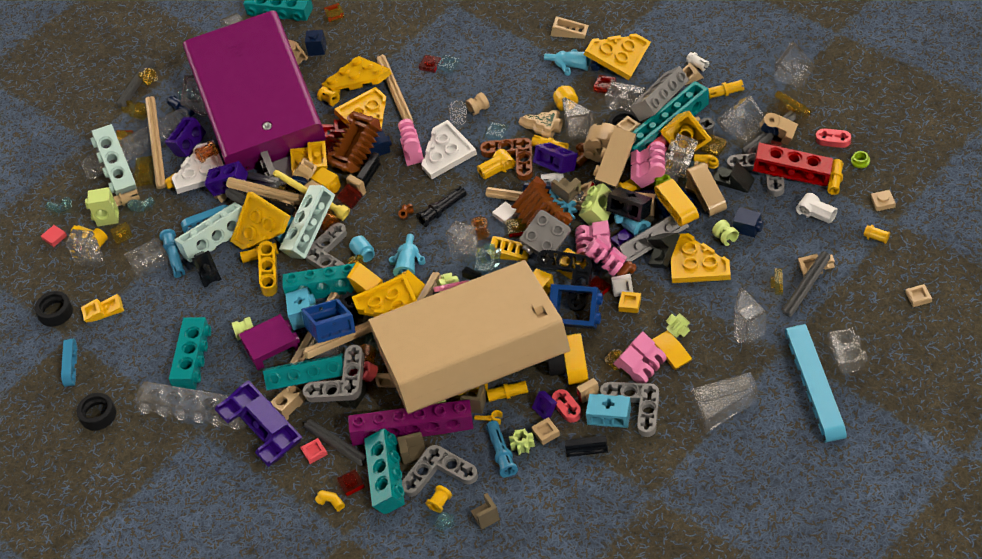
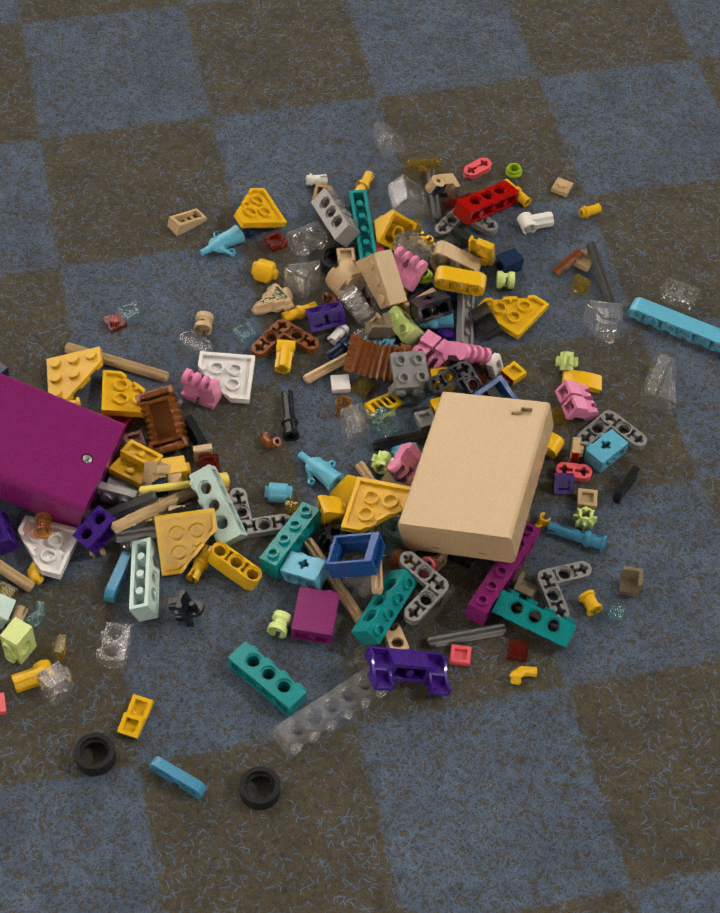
camera: 65 degrees left, 5 degrees up
(171, 249) = (137, 627): dark azure pin -> none
(581, 162) = (356, 304): none -> clear brick
(729, 194) = (482, 249): none -> yellow plate
(792, 255) = (568, 261): none -> dark orange axle
(918, 295) = (663, 230): tan tile -> none

